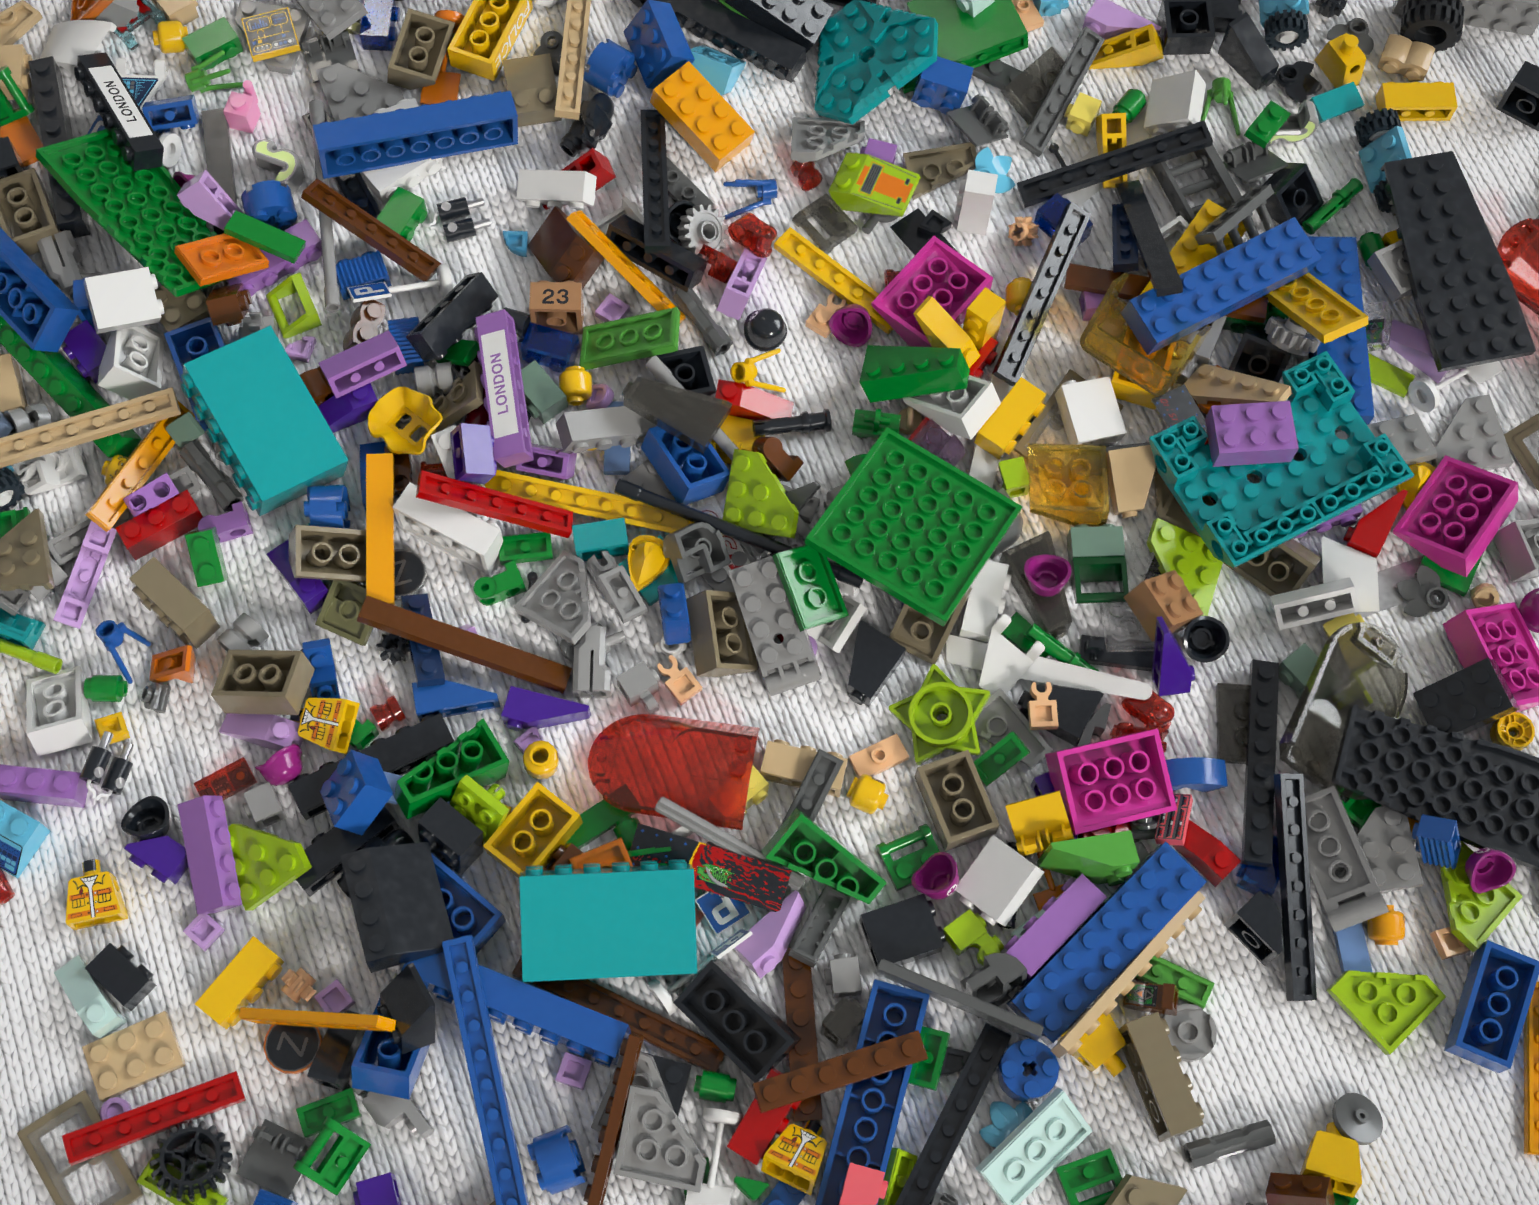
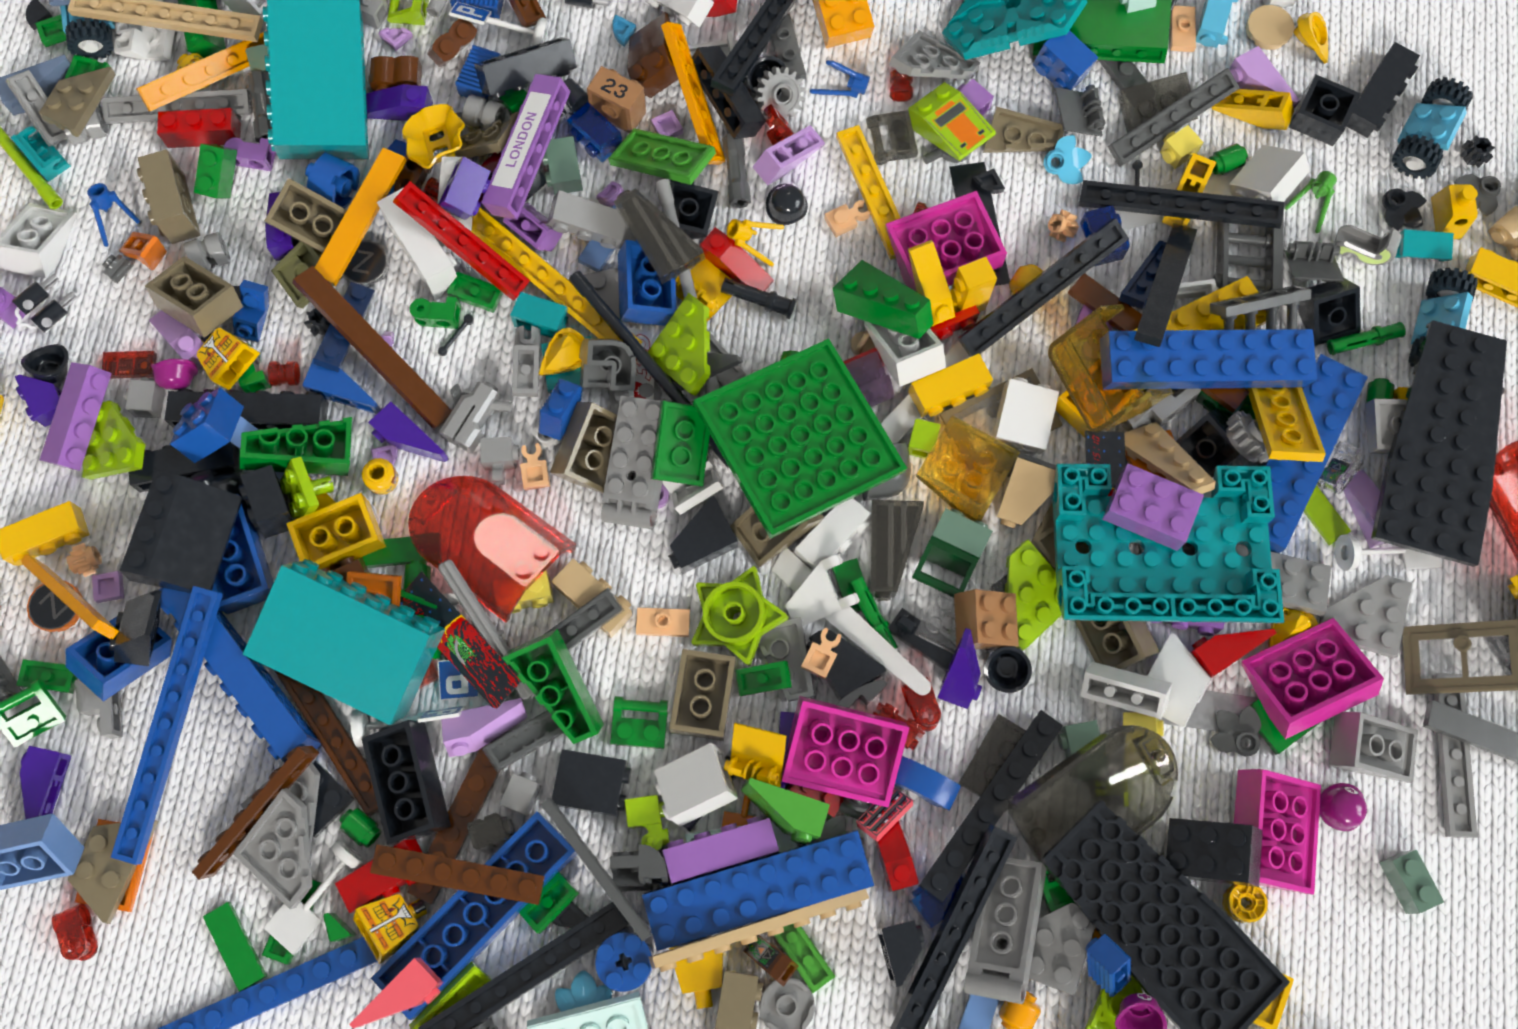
camera: 30 degrees right, 5 degrees up
(84, 576) = (116, 142): lavender slope -> none
(105, 688) = (81, 240): green brick -> none
(115, 724) = (69, 275): yellow tile -> none
(151, 495) = (198, 98): medium lavender leg -> none
(204, 931) = (42, 476): lavender tile -> none
(335, 1056) = (71, 629): black slope -> none
(362, 364) = (425, 70): medium lavender brick -> none
(557, 1160) = (194, 817): blue brick -> none
(560, 599) = (476, 348): light grey plate -> none
(574, 1071) = (255, 751): lavender tile -> none
(576, 385) = (596, 174): yellow head -> none
(753, 233) = (822, 116): clear red piece -> none
(778, 461) = (721, 312): reddish brown leg -> none
(851, 325) = (861, 235): magenta helmet -> none
(867, 794) = (631, 648): yellow head -> none
(873, 423) = (824, 327): green hips -> none
(937, 876) = (644, 752): magenta helmet -> none
(975, 202) = (1031, 178): white brick -> none
(1047, 574) = (894, 538): magenta helmet -> none
(1248, 52) = (1369, 161): black slope -> none
(1267, 124) = (1345, 234): green plate -> none
(1484, 595) = (1294, 765): tan tile -> none

